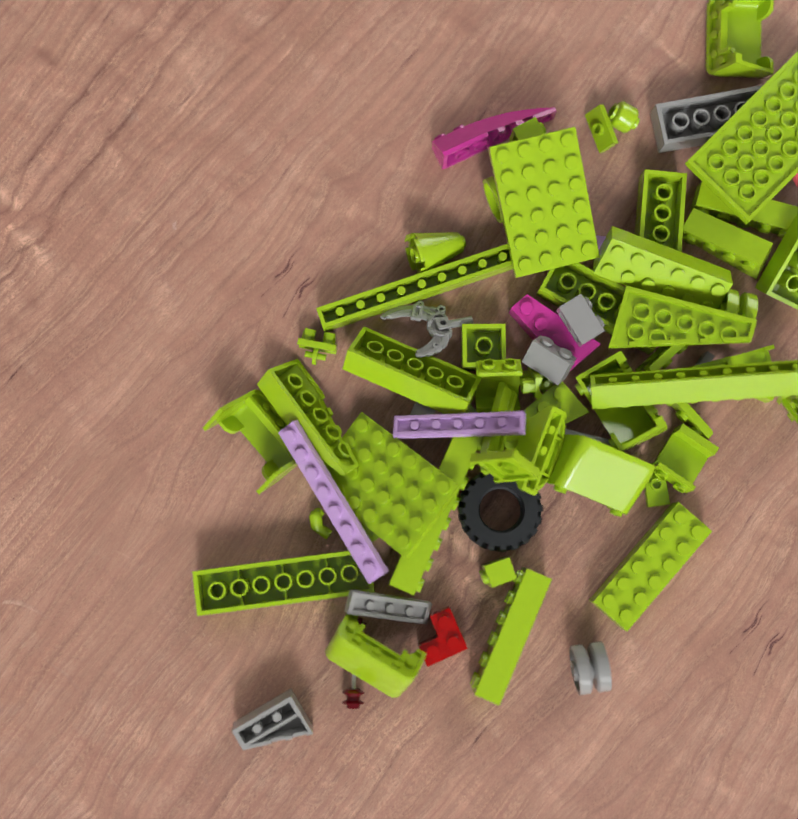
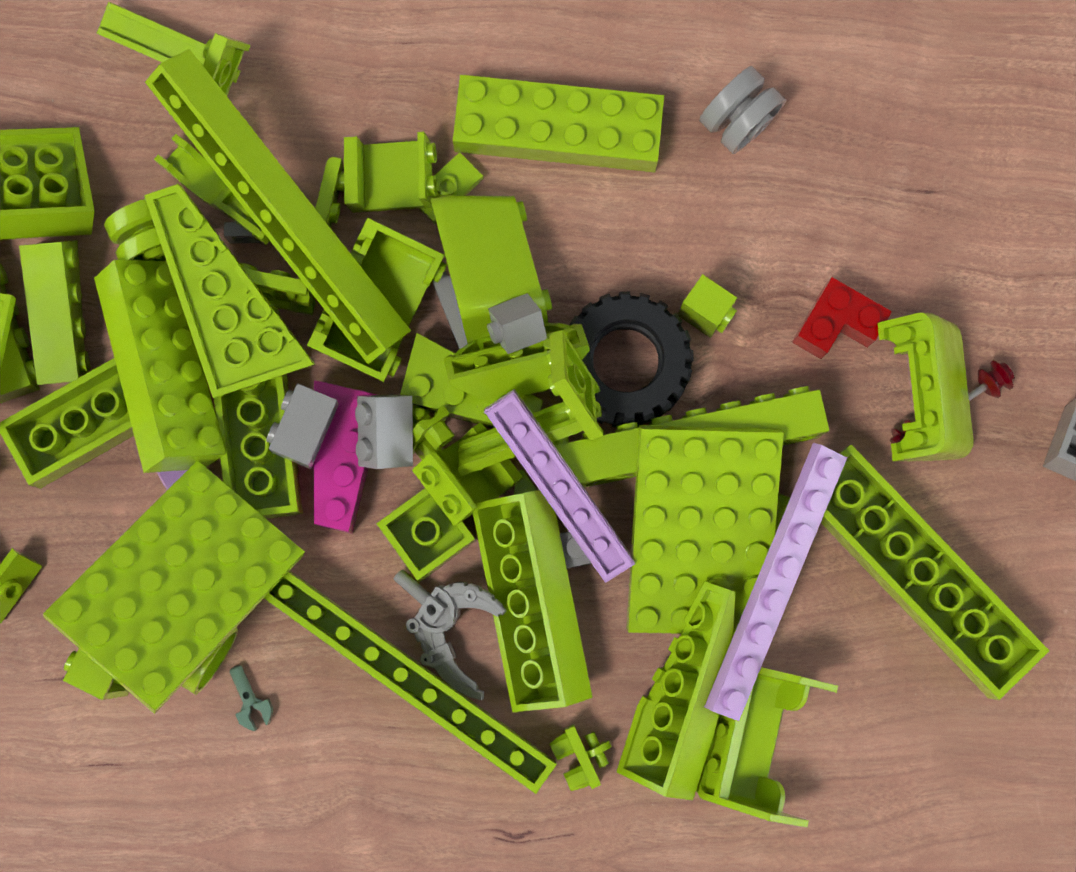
camera: 125 degrees left, 0 degrees up
(317, 524) = (814, 584): lime arm -> none
(387, 607) = (855, 414): light grey plate -> none
(432, 249) = (339, 695): lime cone -> none
(460, 206) = (249, 700): none -> sand green bar
(485, 133) = (124, 740): dark pink wedge -> none
(510, 635) = (775, 236): lime brick -> none
(558, 461) = (516, 324): none -> light grey brick

